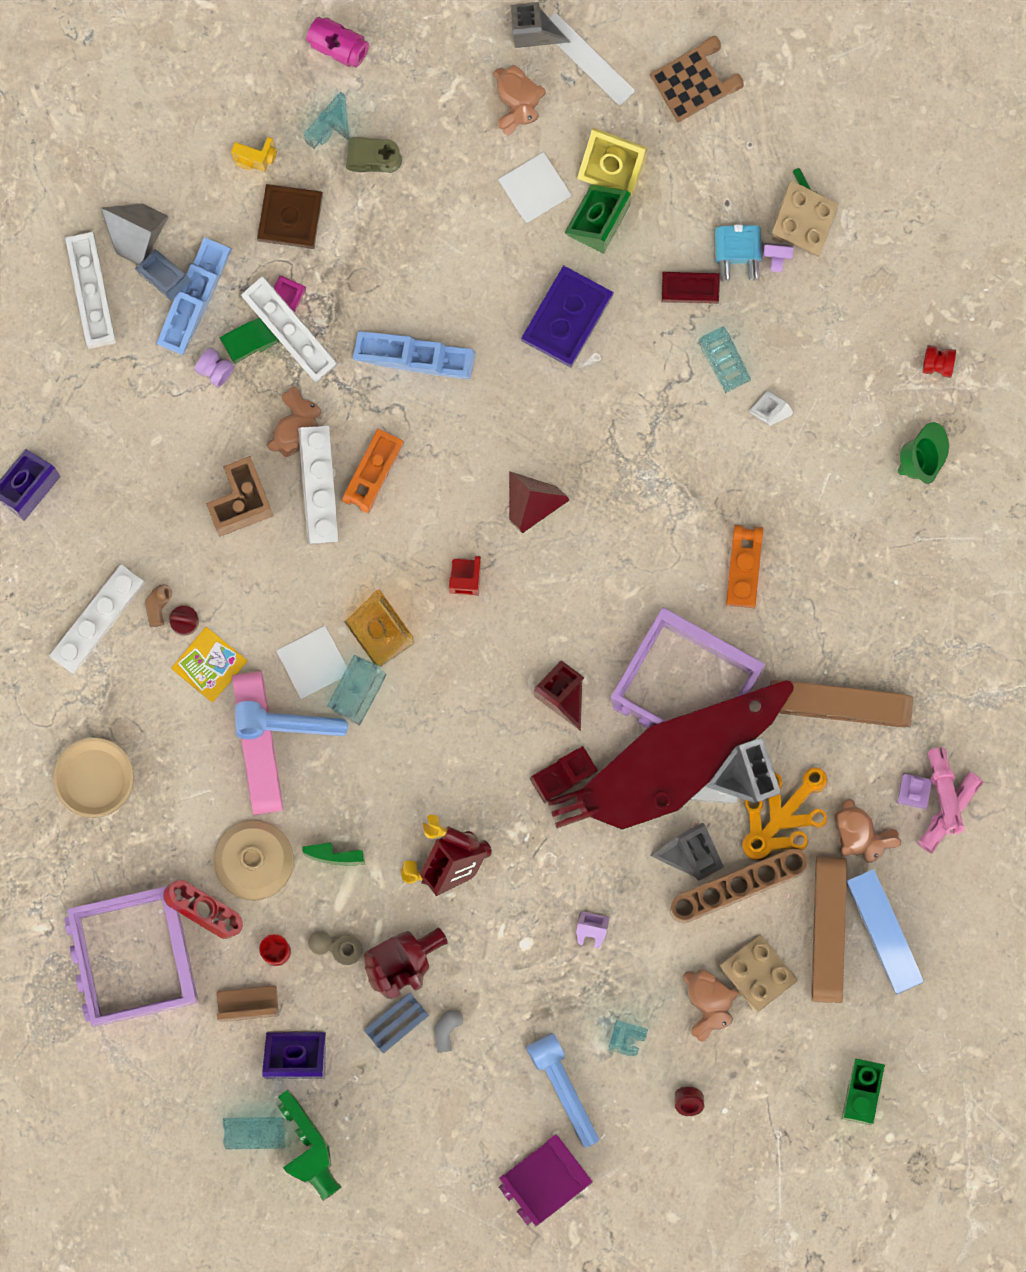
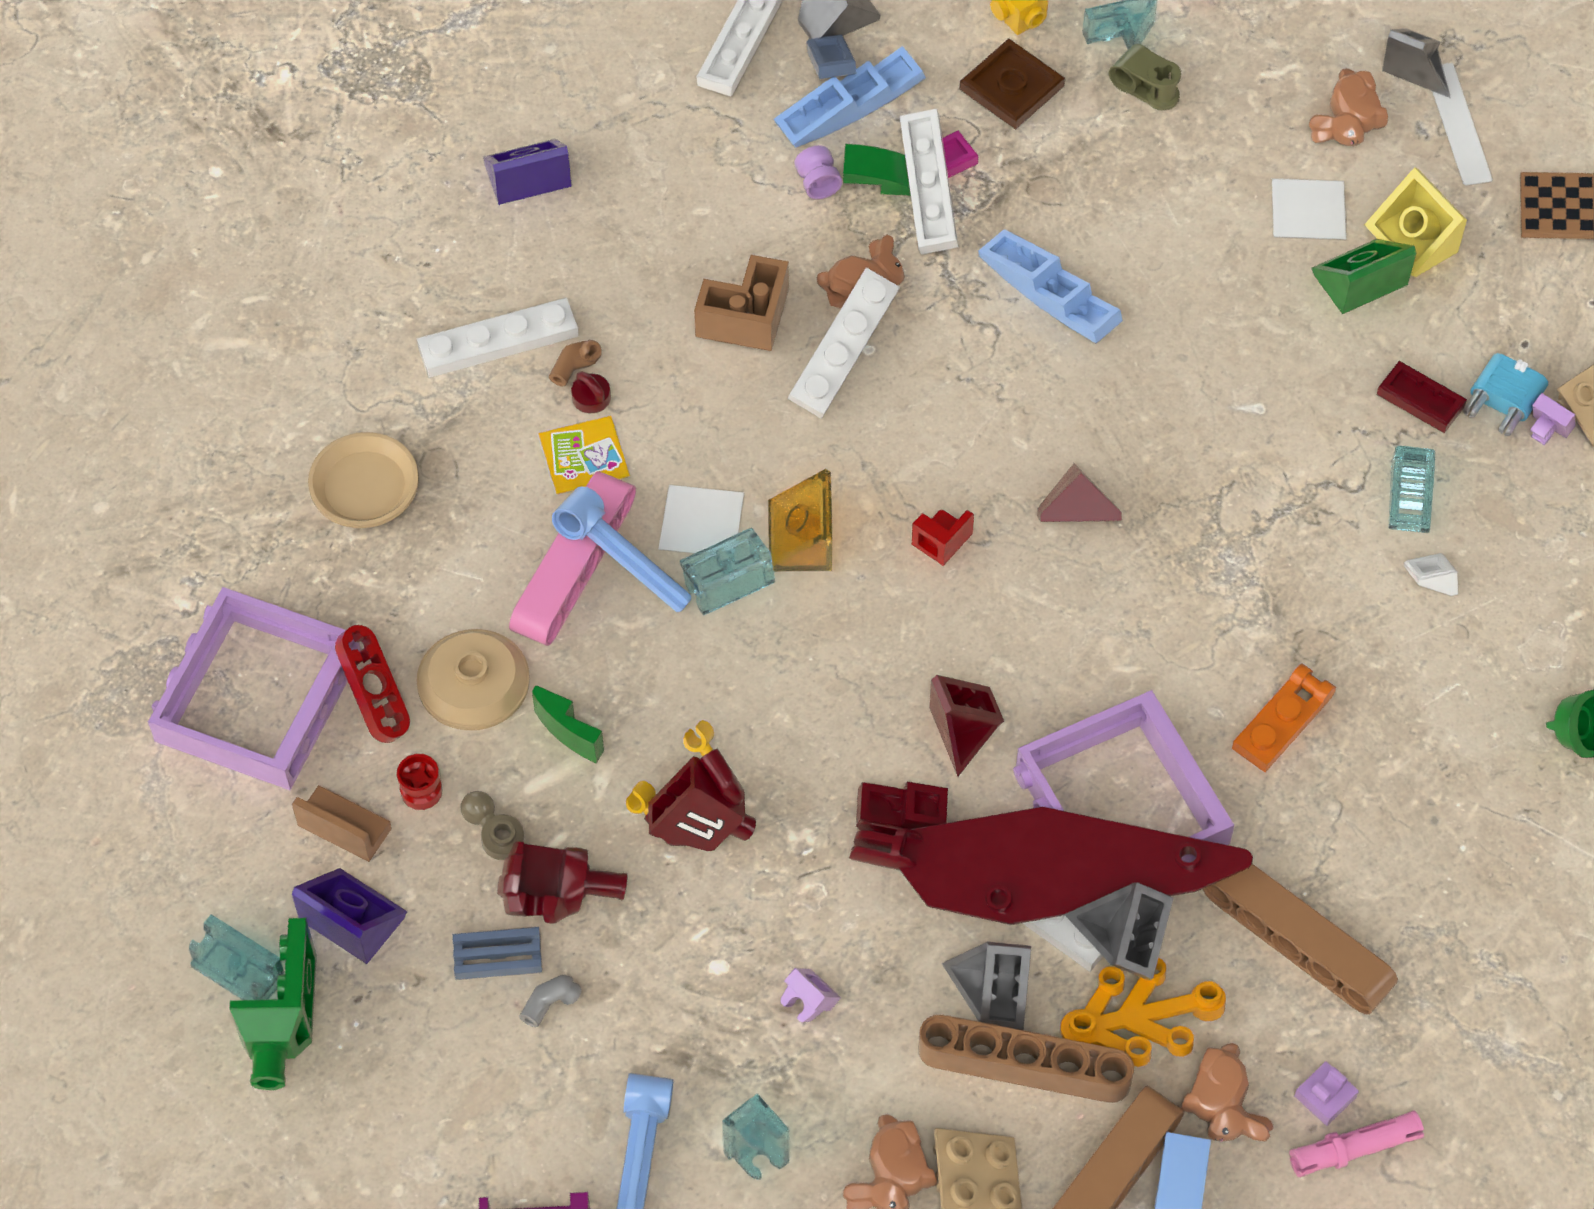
camera: 30 degrees right, 20 degrees down
(373, 470) = (916, 368): orange plate -> none
(567, 316) = (1254, 345): dark purple plate -> none
(943, 779) = (1372, 1098): bright pink pin -> none

